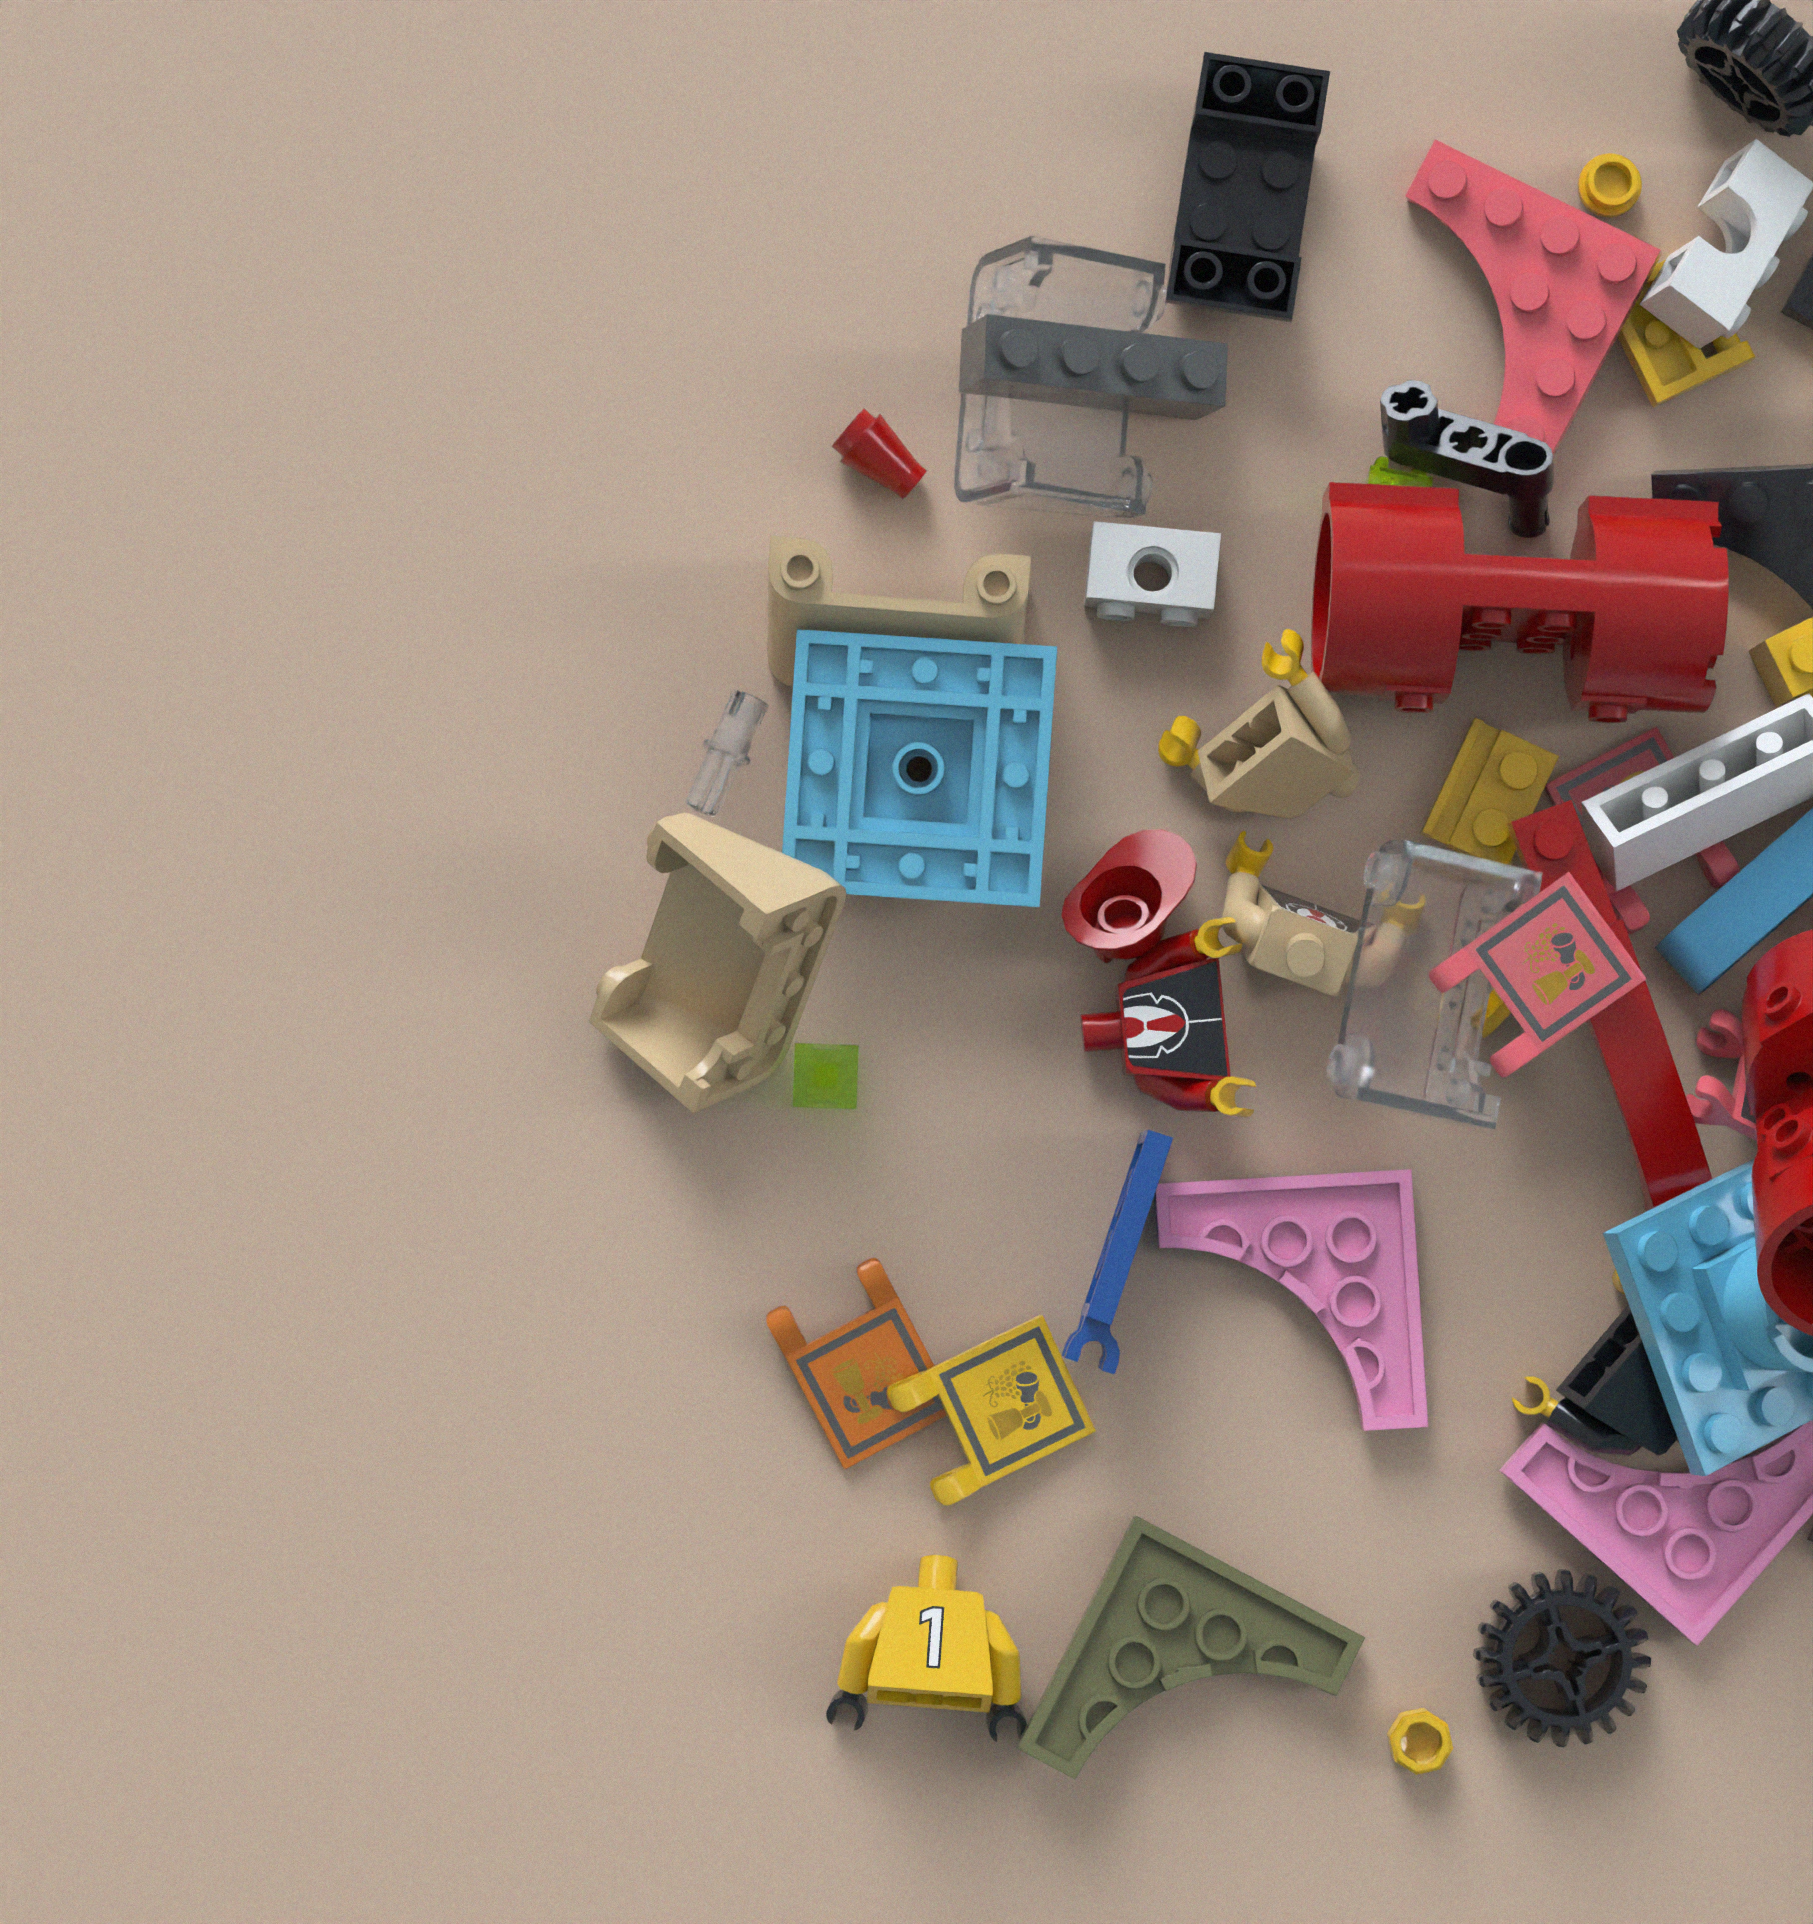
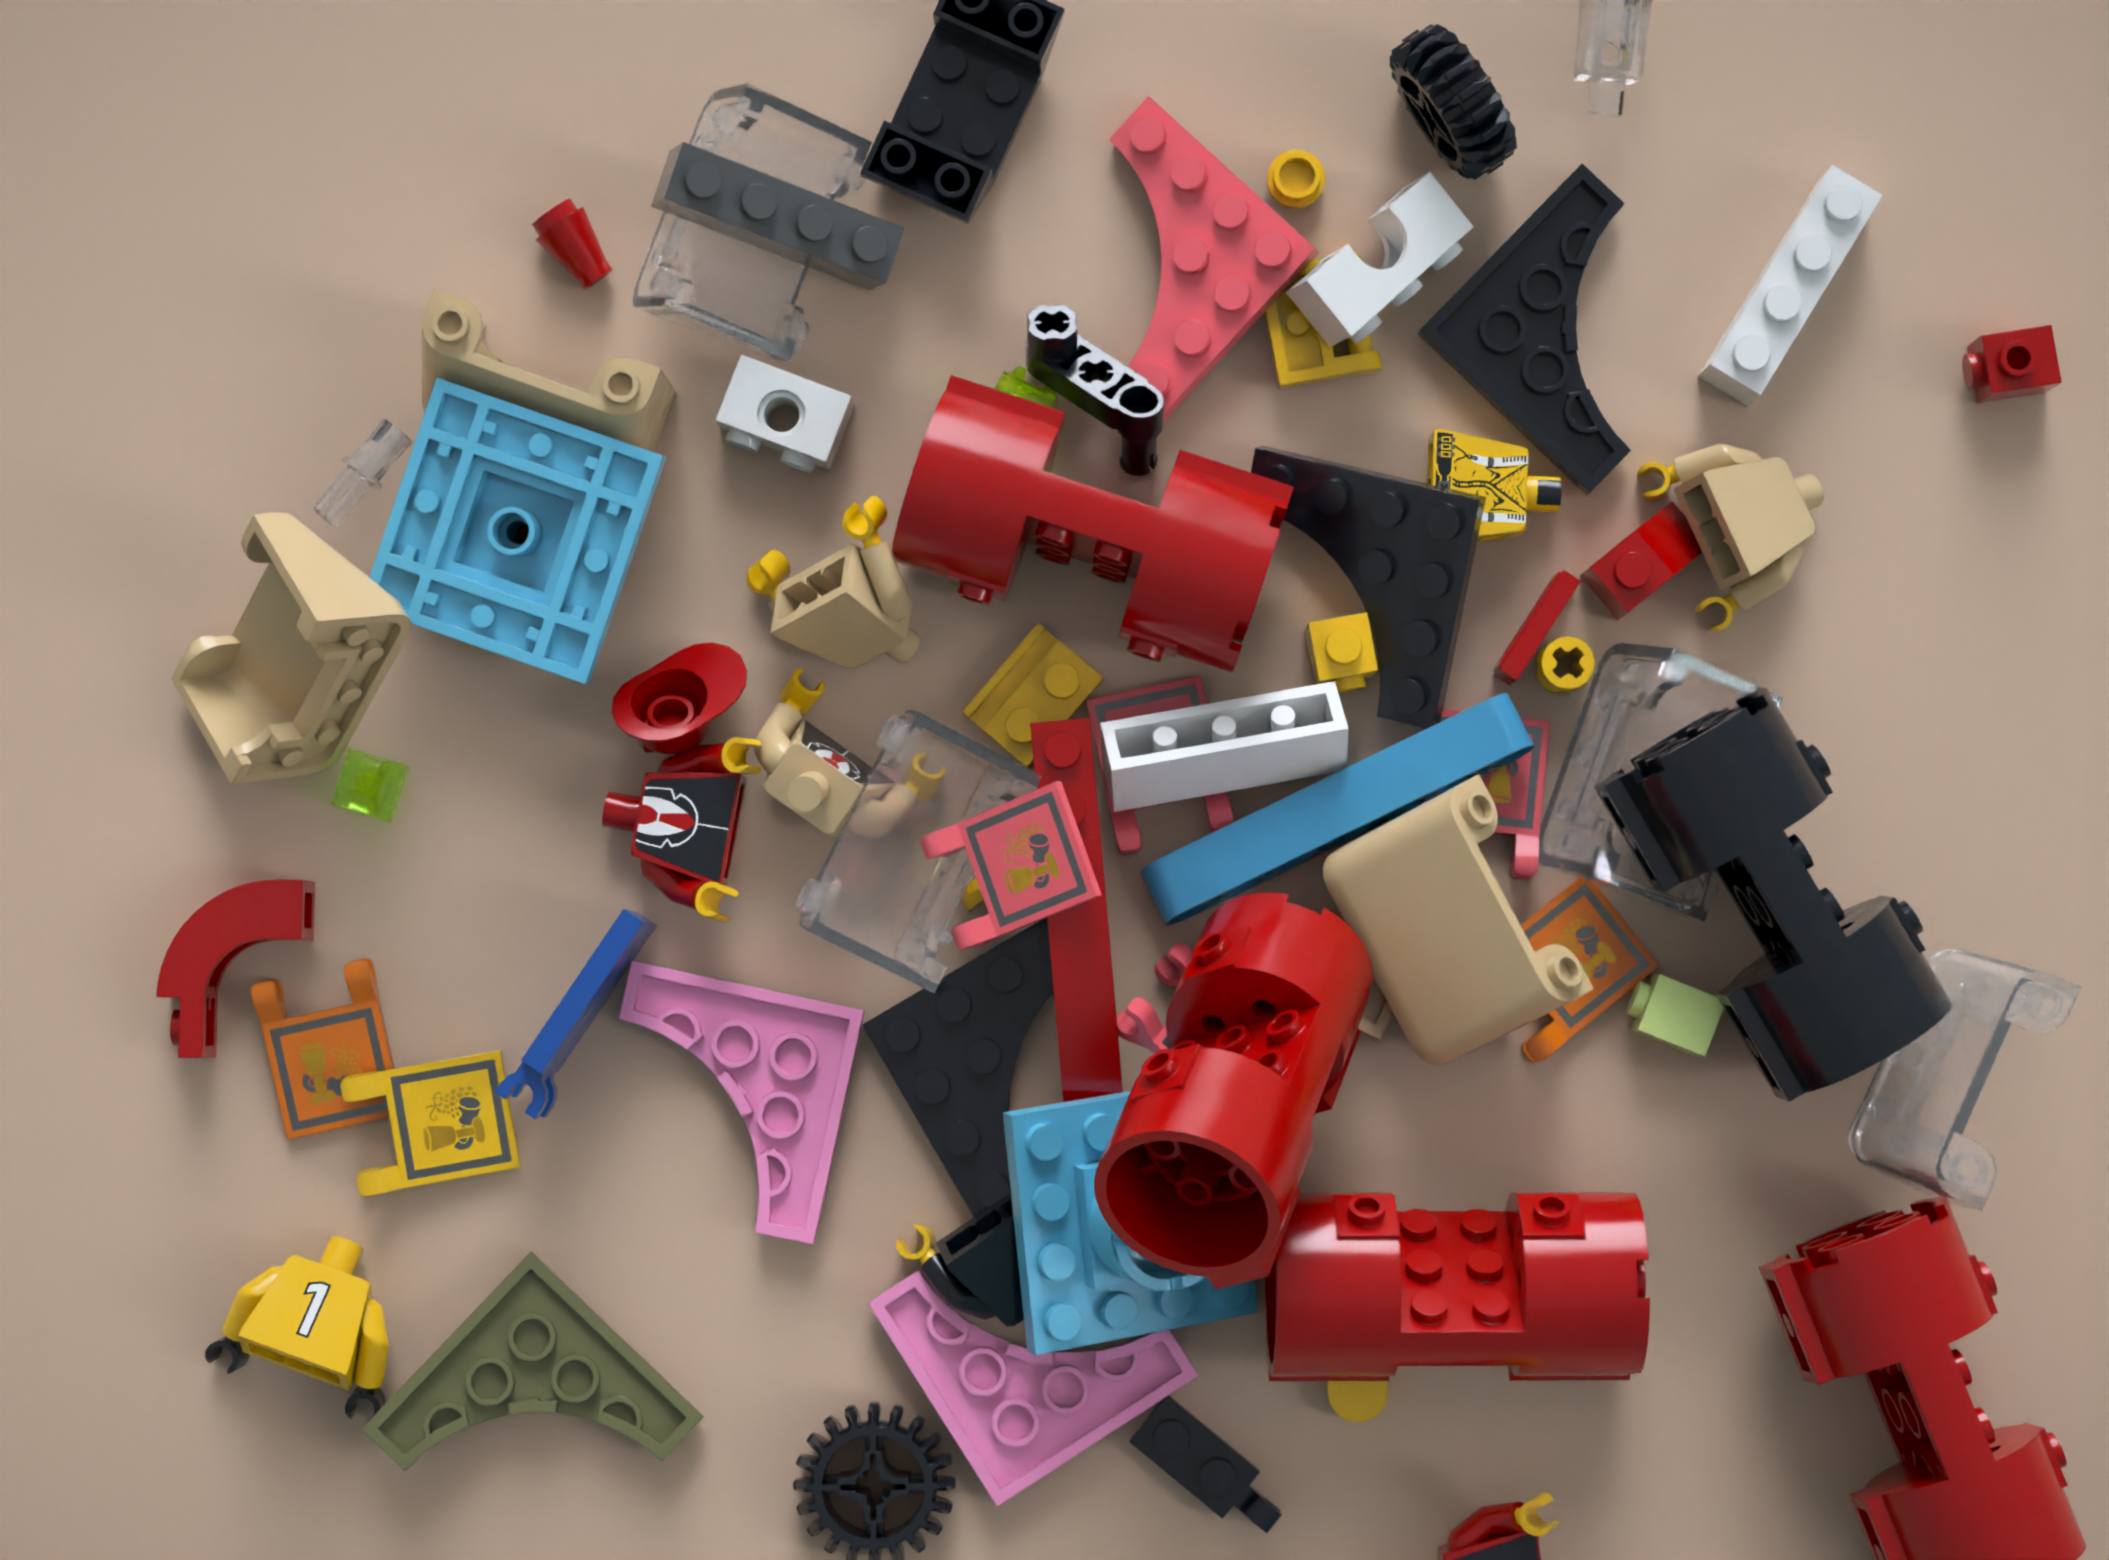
camera: 20 degrees right, 0 degrees up
(719, 1265) = (214, 939): none -> red arch
(1419, 1741) = (728, 1523): yellow tile -> none
(1521, 1189) = (959, 1053): none -> black plate

